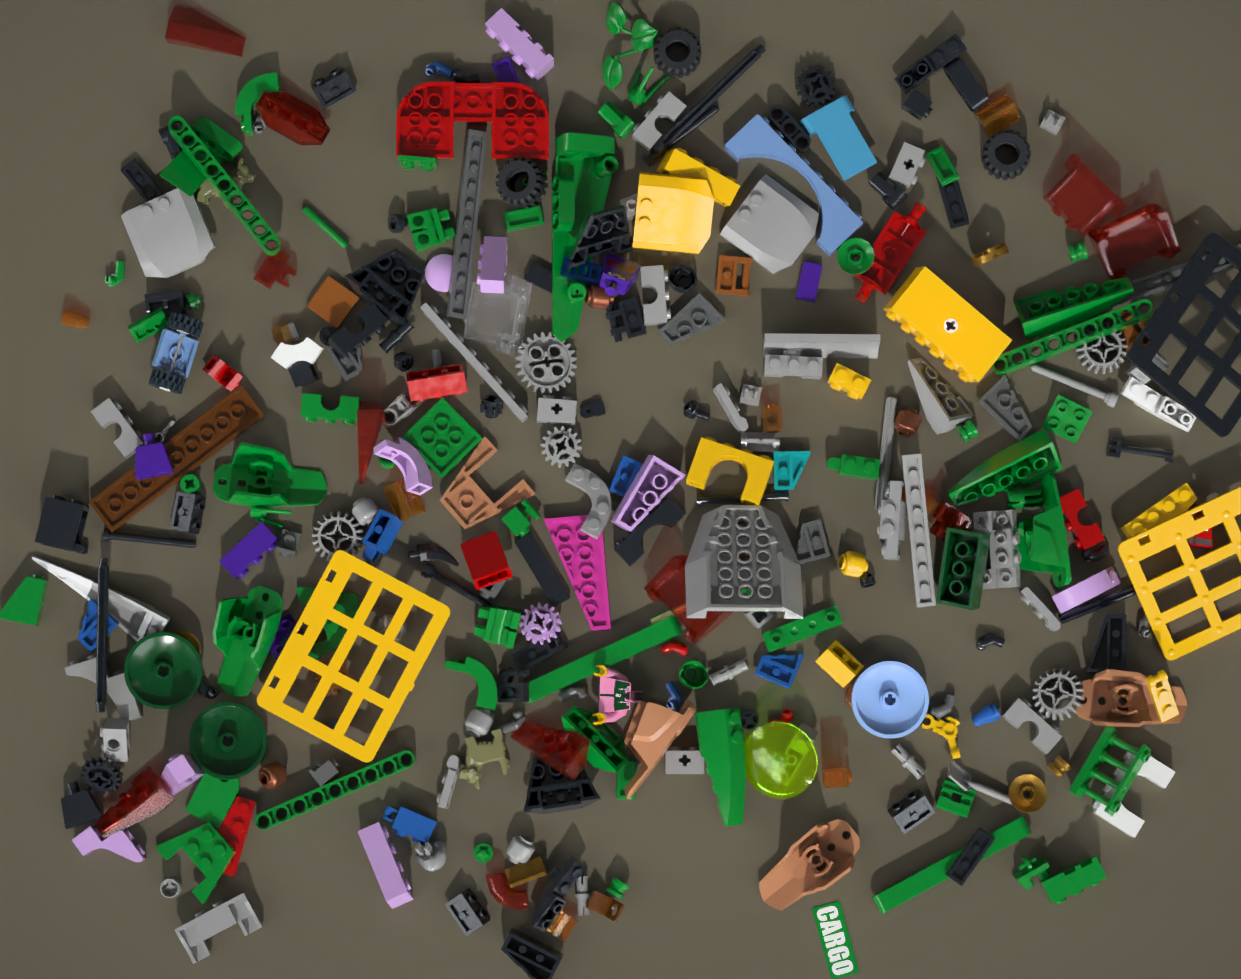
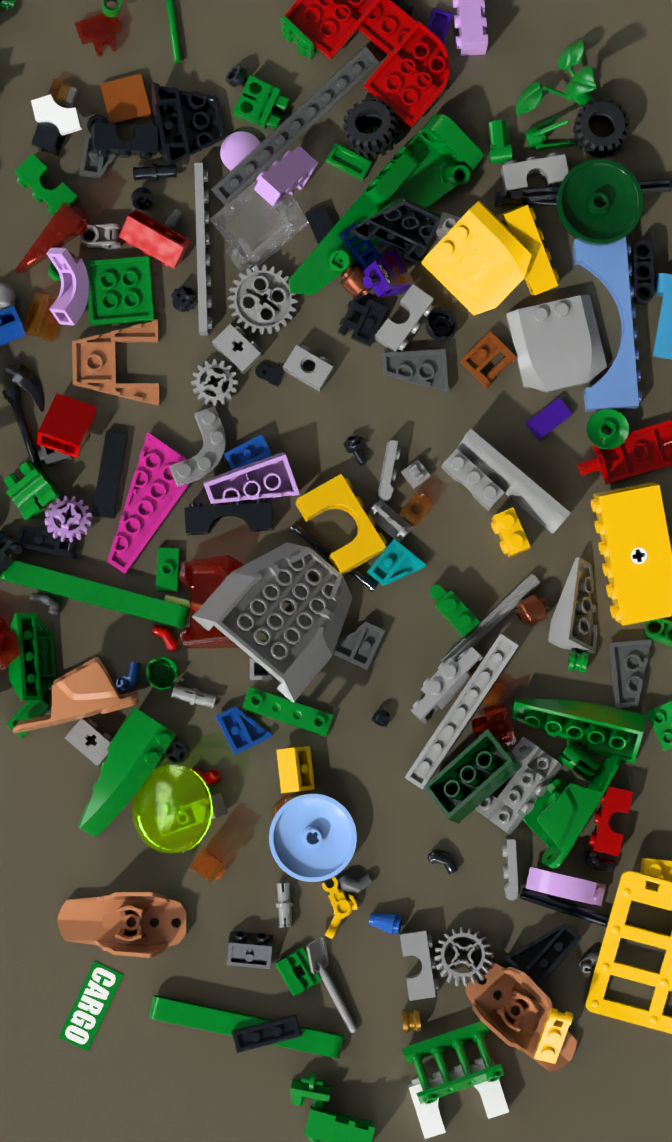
camera: 40 degrees right, 0 degrees up
(517, 520) = (123, 415): green brick -> none
(607, 390) = (315, 378): none -> light grey brick
(614, 695) = (79, 633): torso -> none
(636, 601) = (167, 569): none -> green plate
(721, 105) = (599, 202): none -> dark green dish
(853, 563) = (381, 693): yellow head -> none
(1036, 789) = (375, 1020): pearl gold dish -> none

